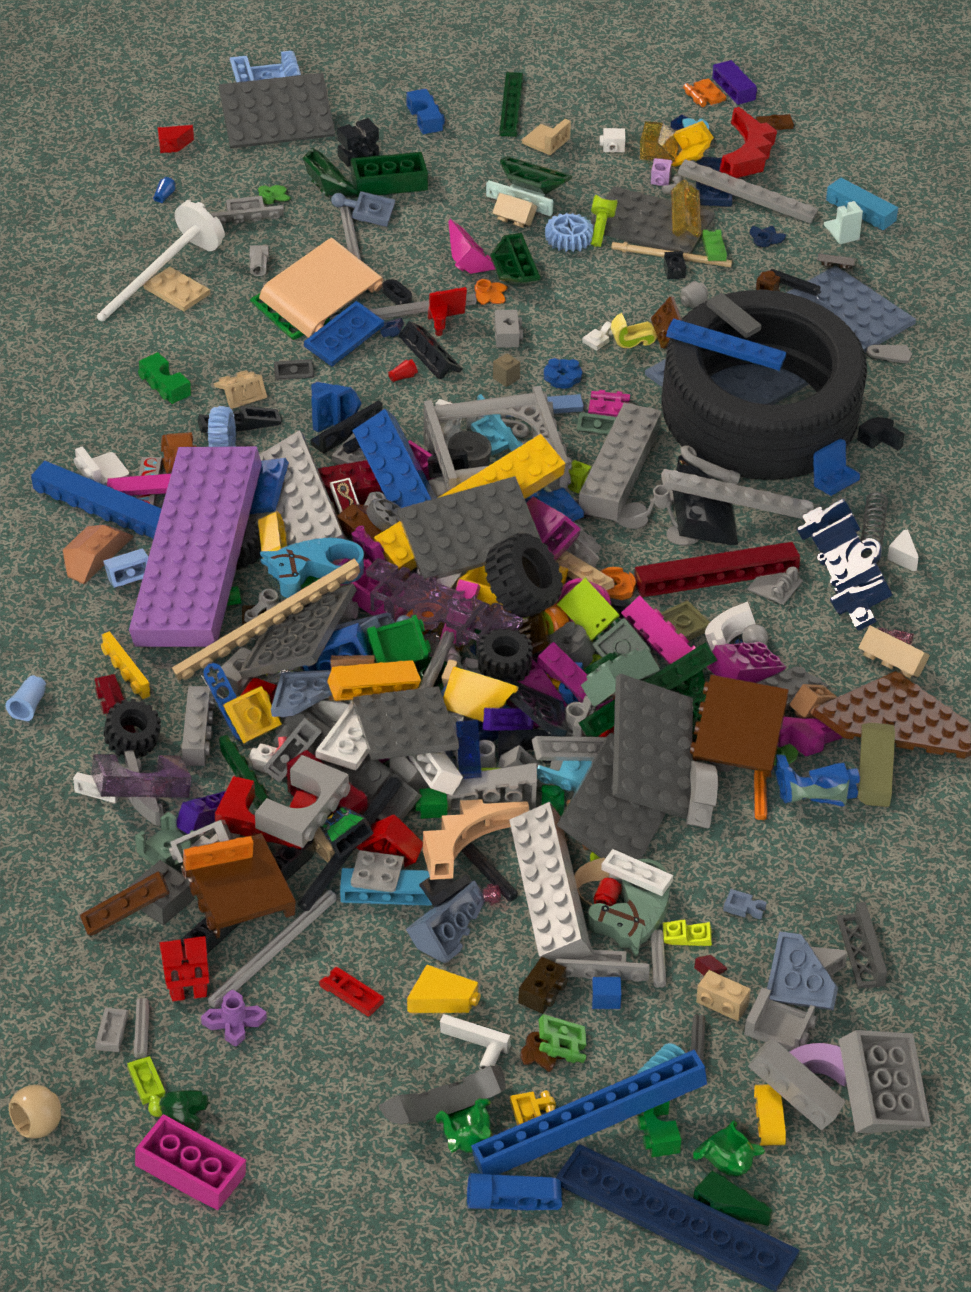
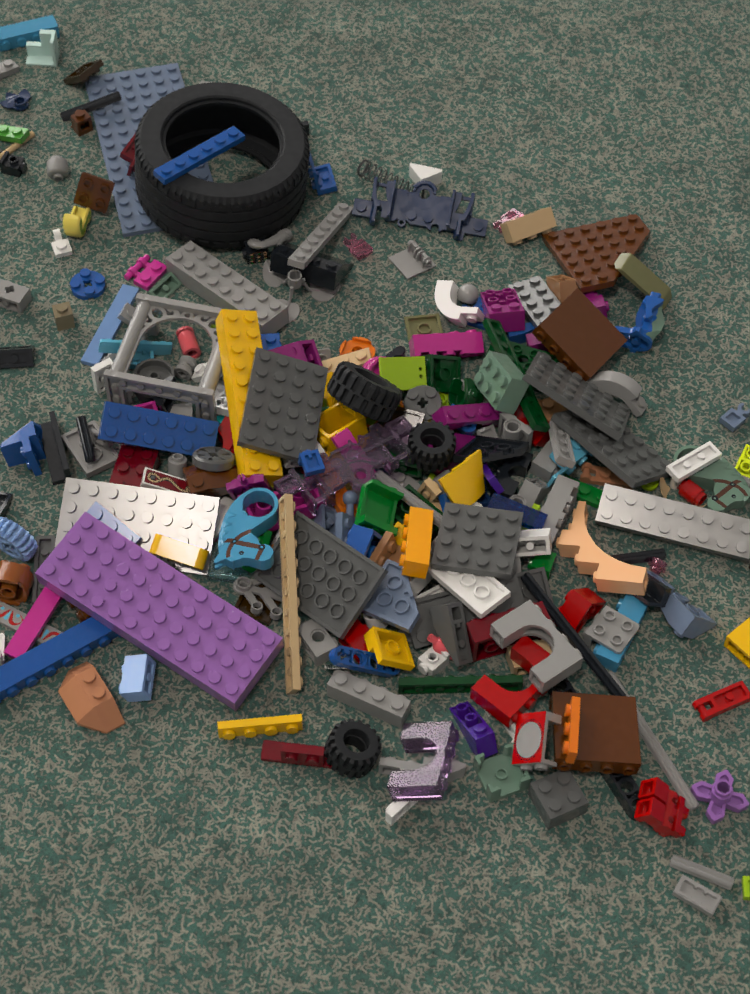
camera: 65 degrees left, 10 degrees up
(25, 700) = (259, 821): light blue plant -> none
(124, 903) = (570, 830): reddish brown plate -> none
(345, 830) = (574, 628): black torso -> none
(403, 371) = (10, 382): red cone -> none
(413, 570) = (311, 462): none -> blue bracket
(715, 569) = (380, 285): dark red brick -> none
(734, 315) = (171, 135): dark grey tile -> none
(760, 536) = (358, 248): none -> clear pink plate
(760, 795) = (631, 363): orange axle -> none

